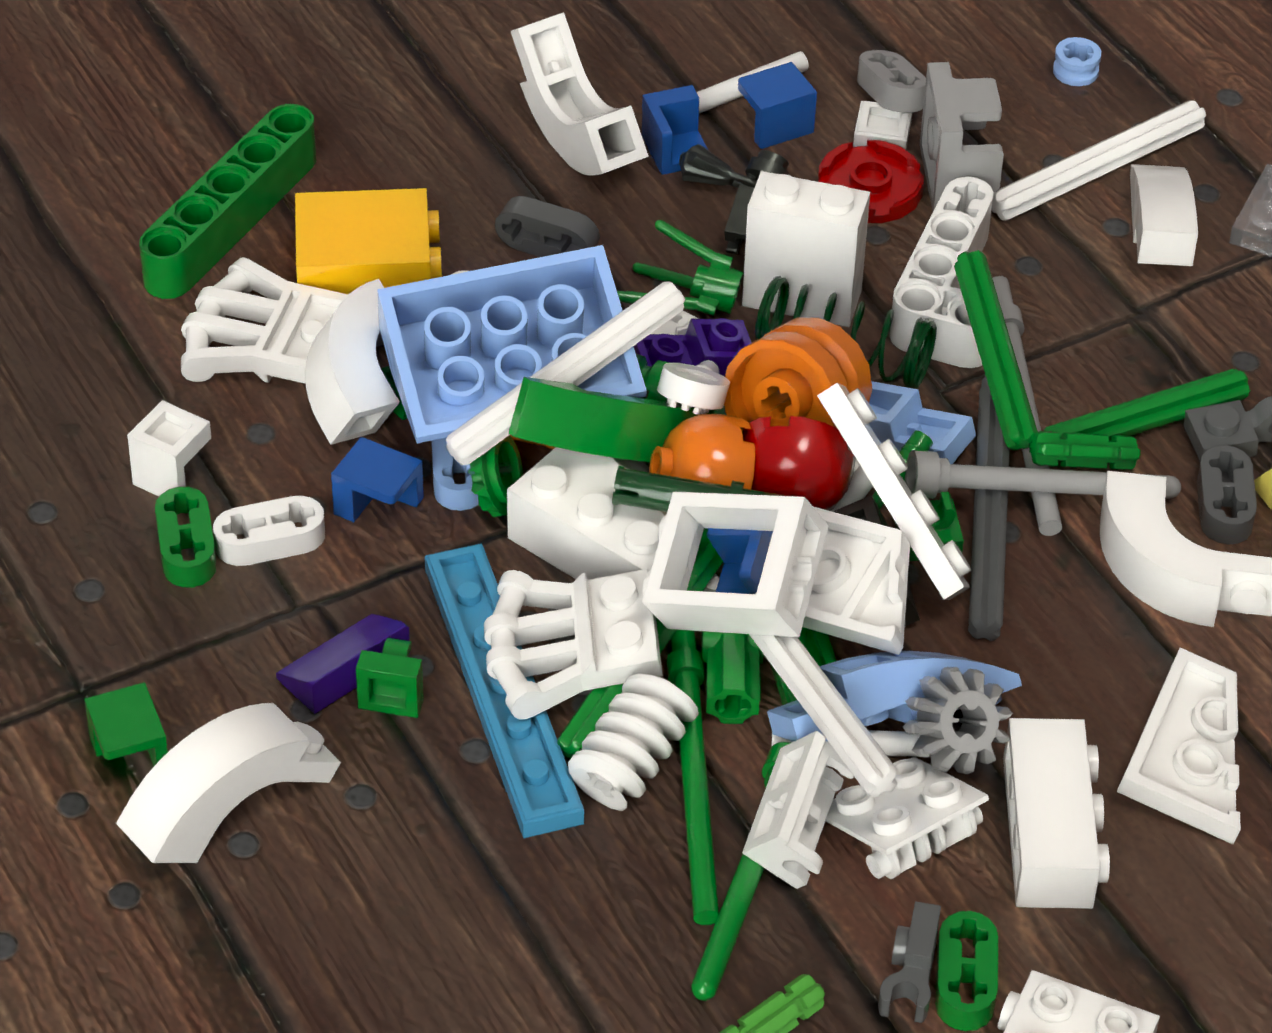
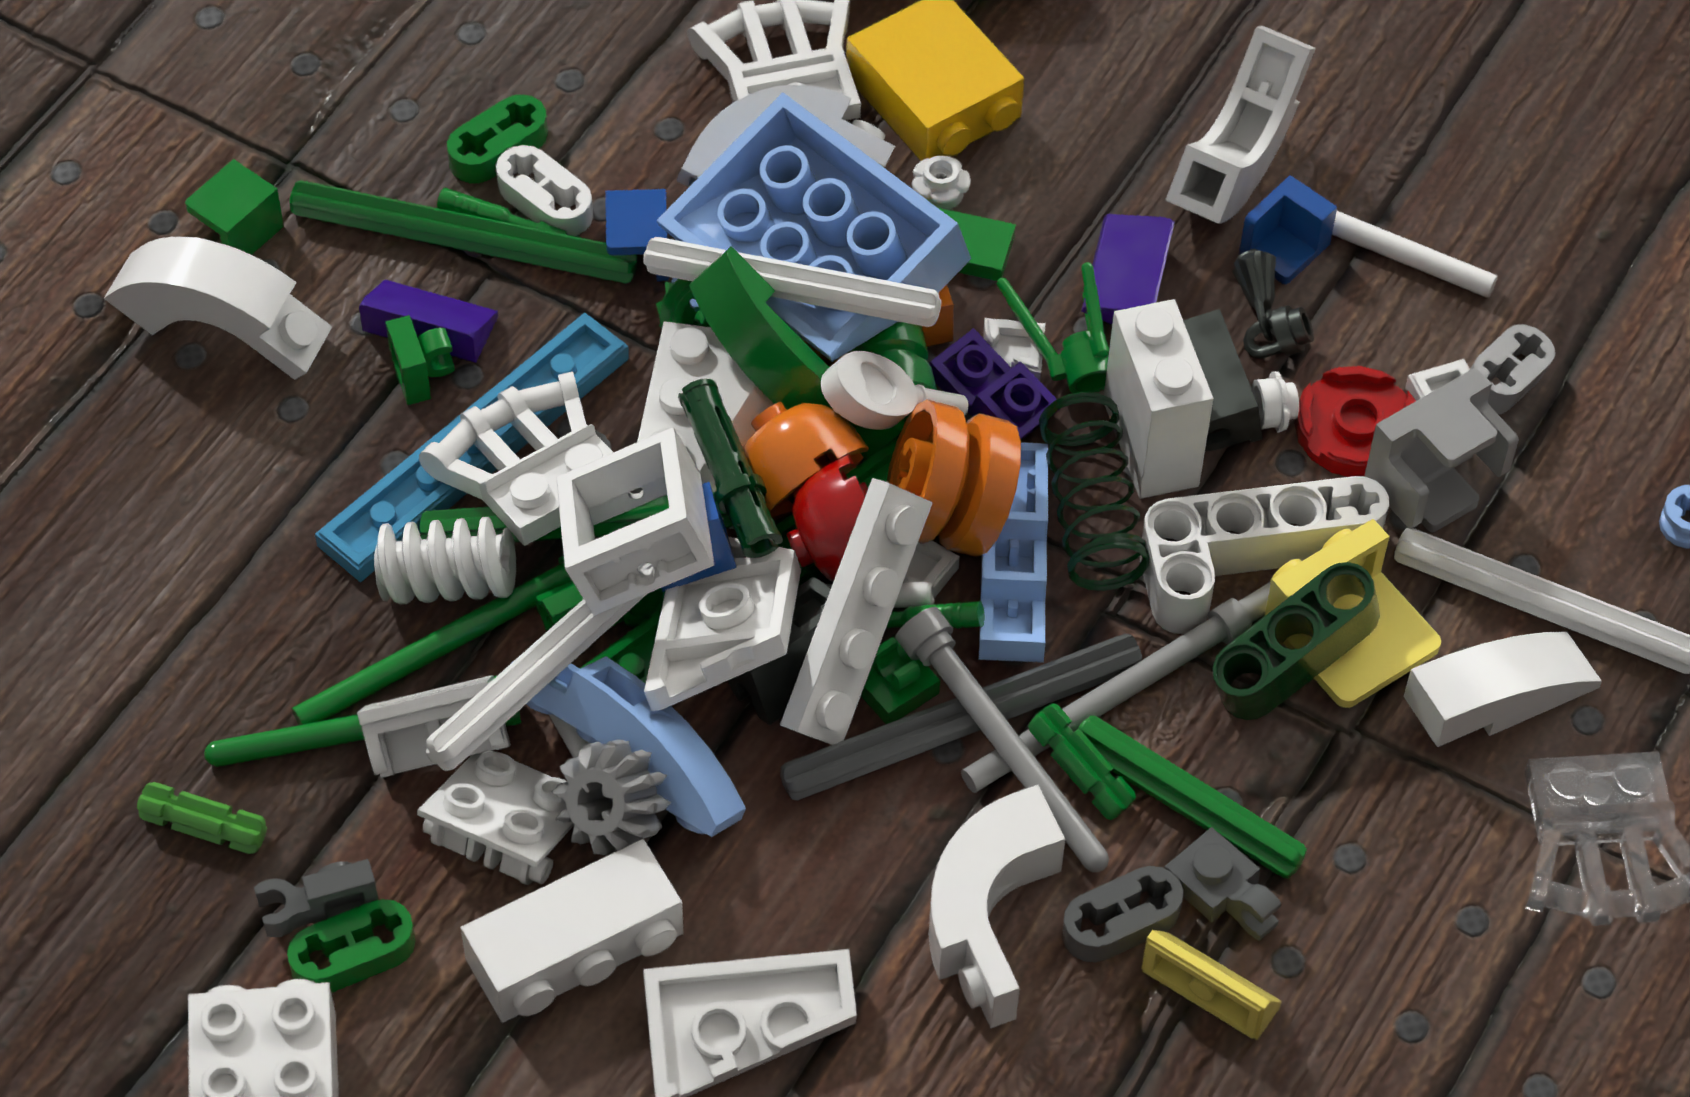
camera: 60 degrees right, 10 degrees up
(163, 447) = (569, 62): white panel -> none
(268, 573) = (465, 204): none -> green piece
(269, 599) = (460, 231): none -> green axle
(544, 227) = (1066, 199): dark grey beam -> none
(628, 220) = (1130, 261): none -> dark purple slope
(782, 104) = (1389, 291): blue panel -> none
(995, 350) = (1138, 616): green axle -> none
(1054, 261) = (1392, 648): none -> light yellow bracket
(1064, 304) = (1305, 612): none -> dark green beam

